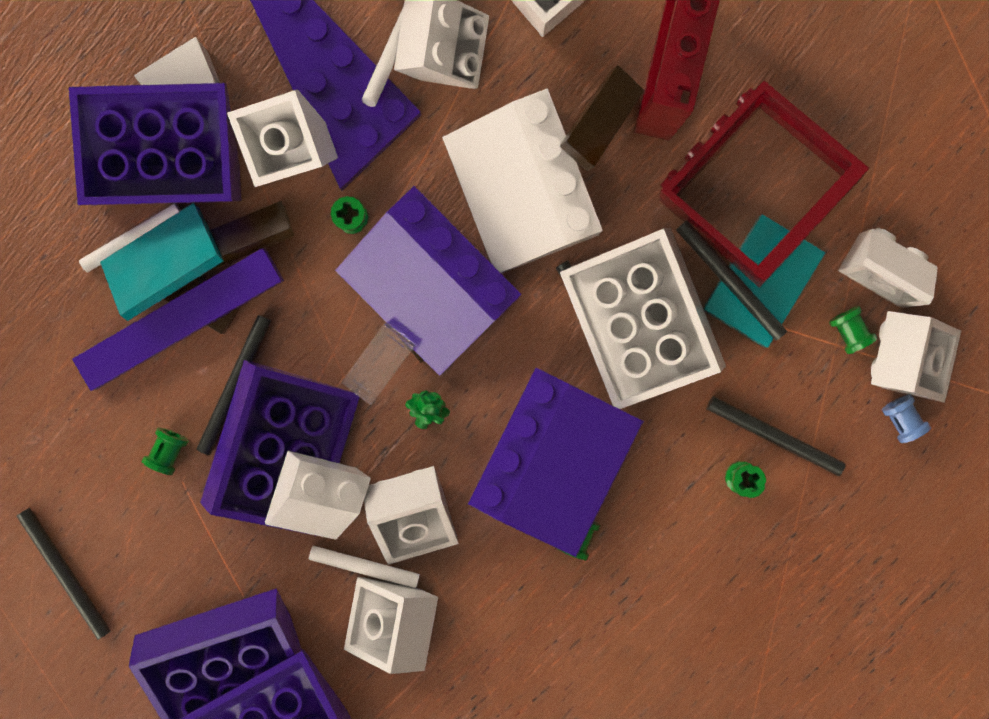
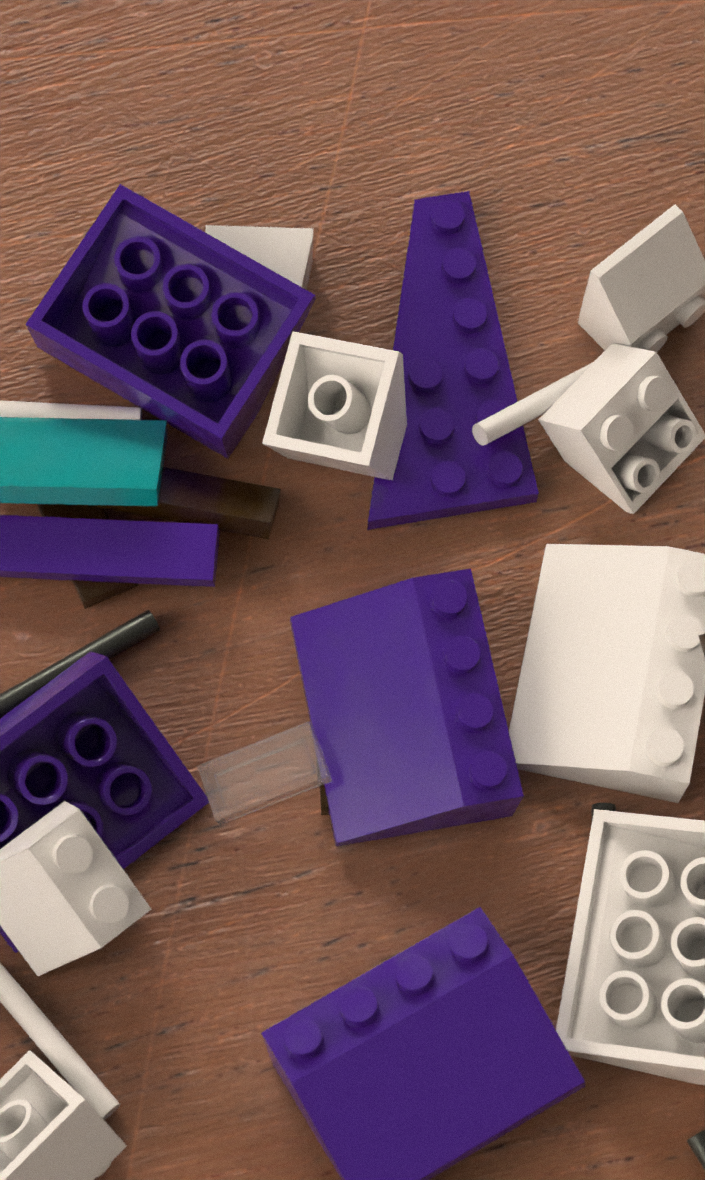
camera: 25 degrees right, 20 degrees down
(341, 207) = (349, 547): green bush -> none
(409, 515) = (164, 1008): white slope -> none
(427, 408) = (290, 876): green plant -> none

